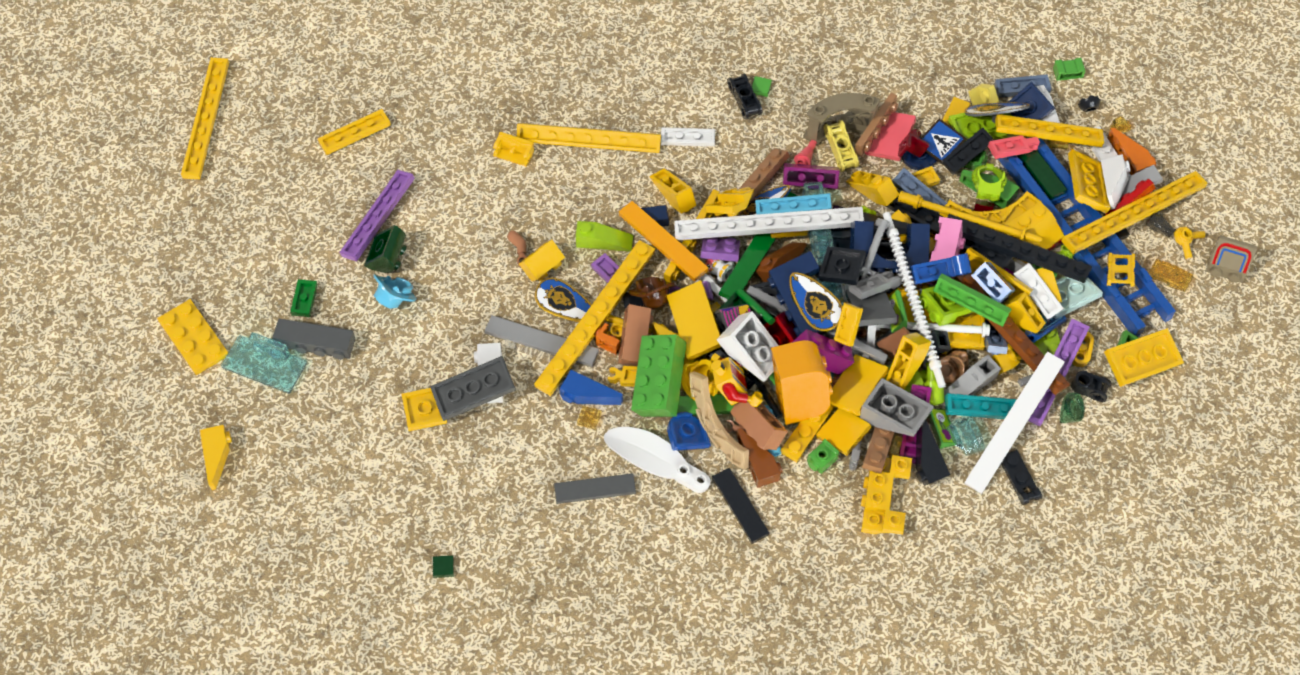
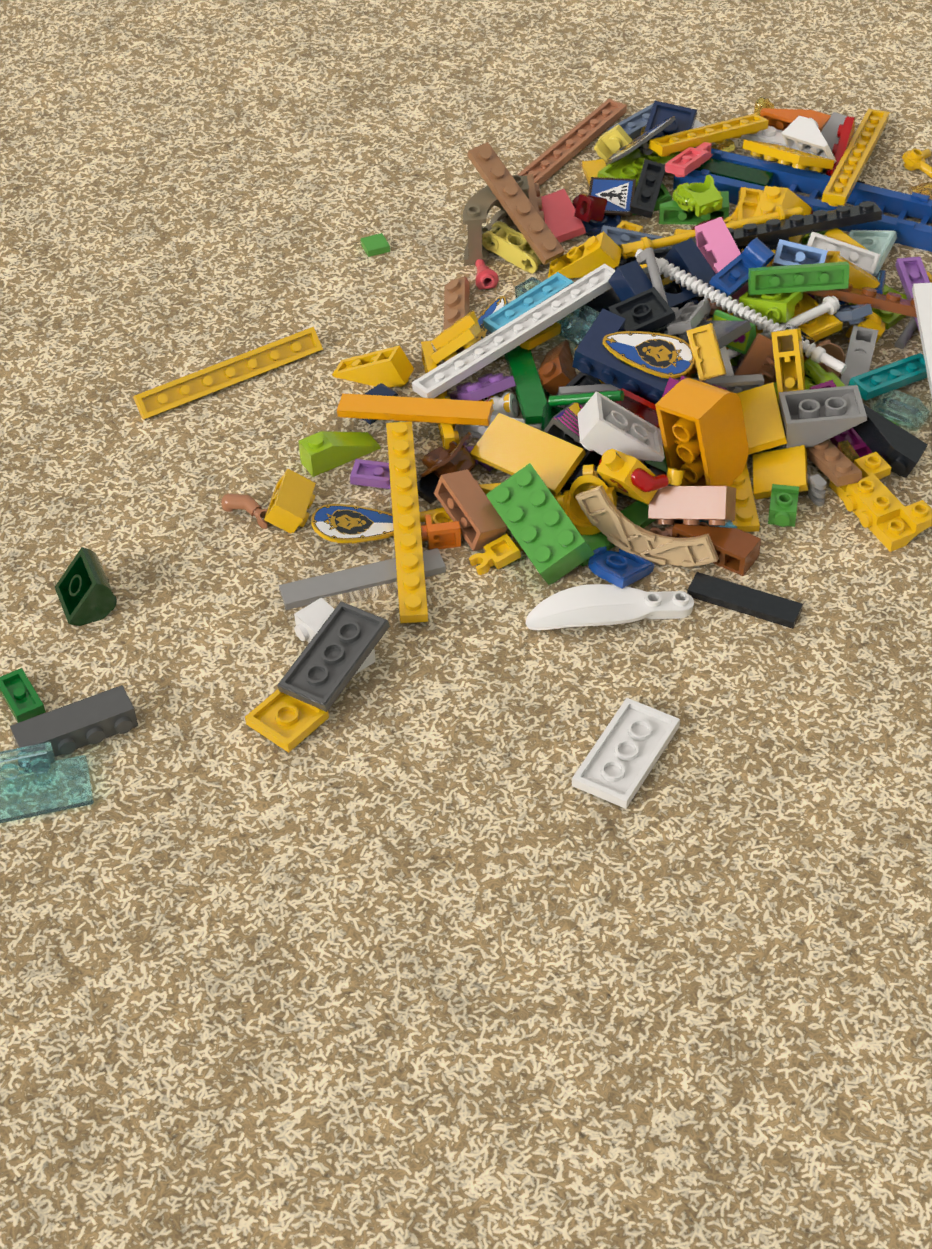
camera: 35 degrees left, 15 degrees down
(215, 451) = (45, 912): yellow slope -> none
(377, 215) = (38, 568): medium lavender plate -> none
(393, 291) = (135, 623): medium azure hat -> none
(443, 566) = (471, 860): dark green tile -> none
(513, 149) = (149, 424): yellow hinge -> none
(579, 559) = (625, 753): none -> white plate
(584, 390) = (466, 591): blue slope -> none
(589, 417) = (493, 617): clear yellow tile -> none
(594, 488) = (569, 678): dark grey tile -> none
(688, 137) = (342, 320): white tile -> none
(744, 96) = (368, 257): black piece -> none
(799, 174) = (504, 283): magenta brick -> none
(853, 119) = (515, 203): none -> medium nougat plate
(958, 77) = (575, 141): none -> nougat plate
(1069, 69) = (669, 91): bright green piece -> none
(1089, 104) = (717, 106): black plate -> none
(1113, 268) = (888, 205): yellow piece -> none
(1160, 224) = (884, 162): clear smoke cone -> none

